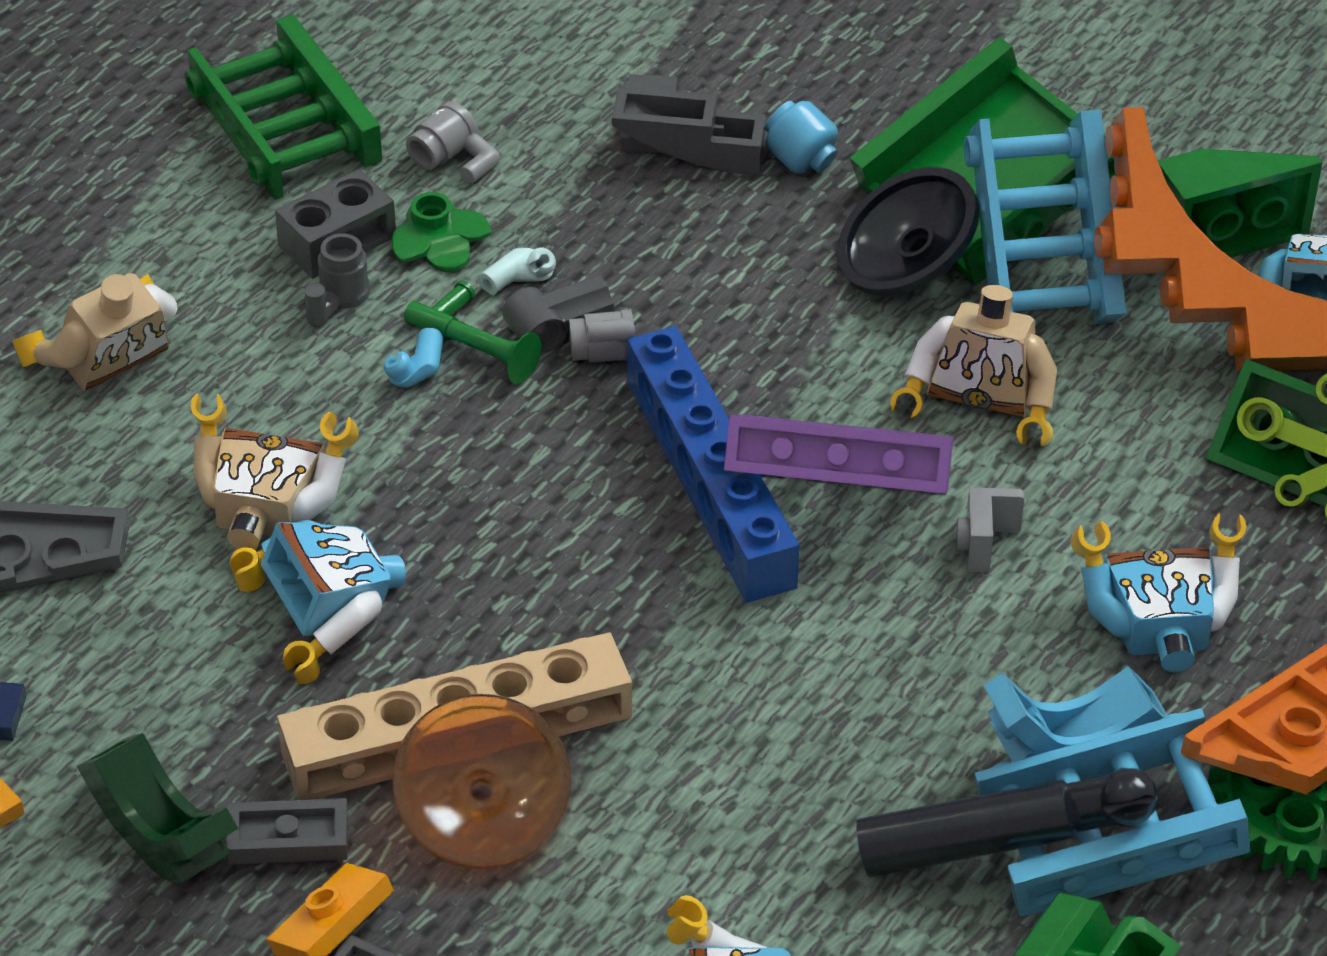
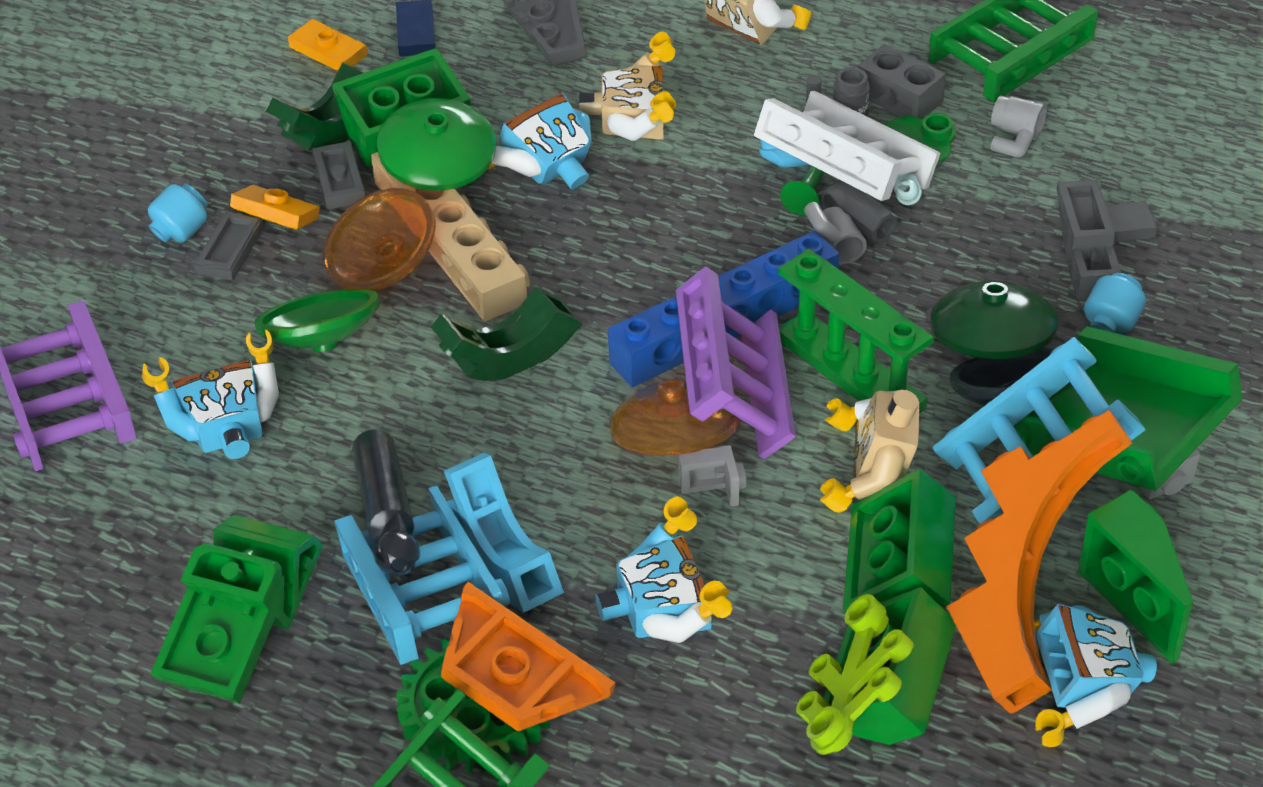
camera: 80 degrees right, 0 degrees up
(200, 717) = (376, 94): none -> green slope
(319, 681) = (436, 144): none -> green dish
(461, 284) = (846, 144): none -> white fence
(612, 867) = (318, 318): none -> green dish
(707, 673) = (513, 345): none -> dark green arch
(792, 241) = (994, 320): none -> dark green dish
(841, 373) = (851, 304): none -> green fence
(893, 545) = (661, 422): none -> clear orange dish
(1138, 393) = (902, 541): none -> green slope

